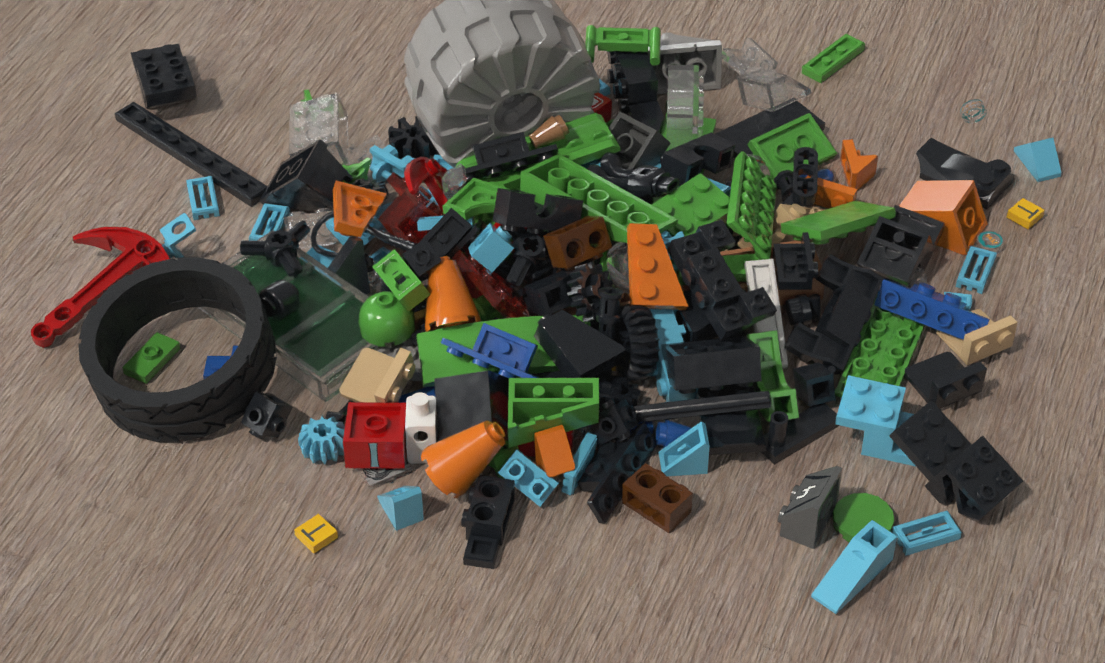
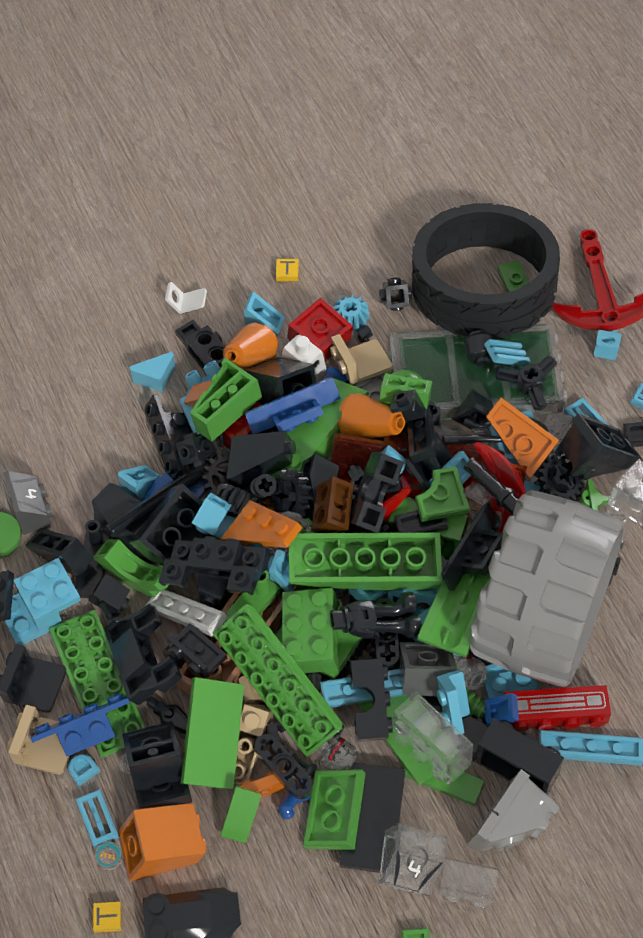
camera: 135 degrees right, 15 degrees up
(271, 271) = (506, 352): none -> medium azure tile
(440, 159) = (504, 496): none -> black pin
(443, 575) = (185, 301): none -> white bracket
(549, 132) = (470, 595): medium nougat cone -> none
(560, 534) = (154, 372): none -> medium azure slope
(611, 100) = (502, 708): none -> blue bracket
(624, 40) = (545, 750): bright green plate -> none
(647, 107) = (453, 698): none -> medium azure bracket
(657, 497) = (125, 433): reddish brown brick -> none
(668, 314) = (211, 514): none -> medium azure brick
(822, 438) = (55, 545): none -> black slope
(857, 168) = (271, 834): orange slope -> none
(864, 183) = (240, 814): none -> bright green slope

